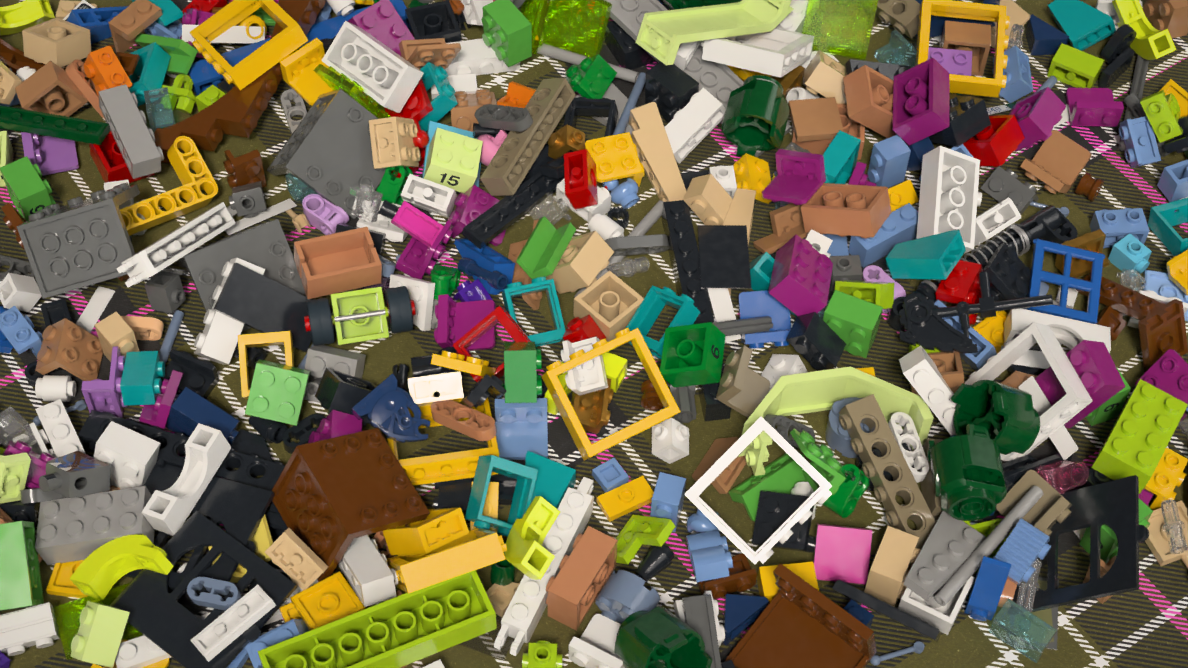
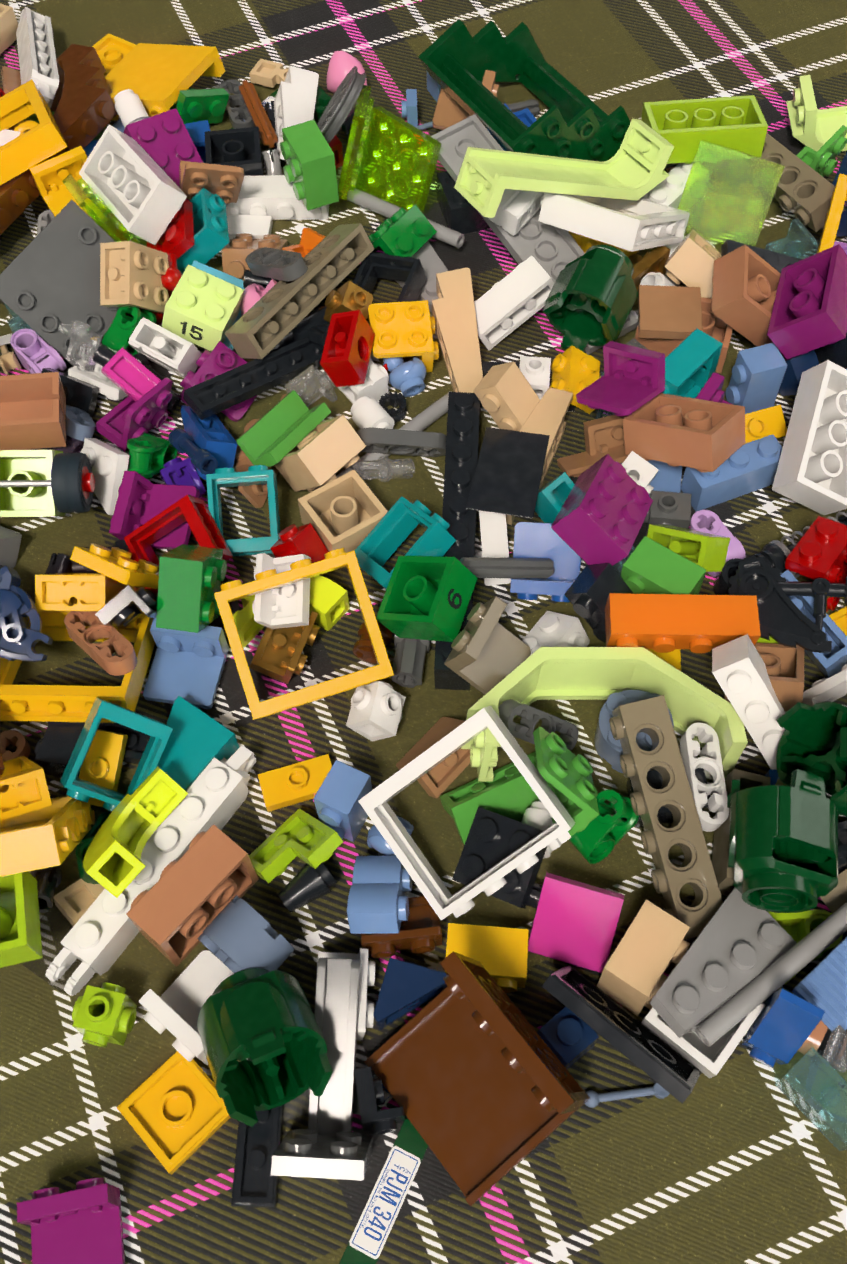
camera: 15 degrees right, 5 degrees up
(466, 29) = (274, 167): none -> light grey pin
(610, 475) = (284, 746): medium blue plate -> none
(632, 100) = (449, 263): sand blue bar -> none
(669, 89) = (492, 252): black brick -> none
(870, 345) = (679, 621): none -> orange brick
(926, 257) = (782, 508): teal slope -> none

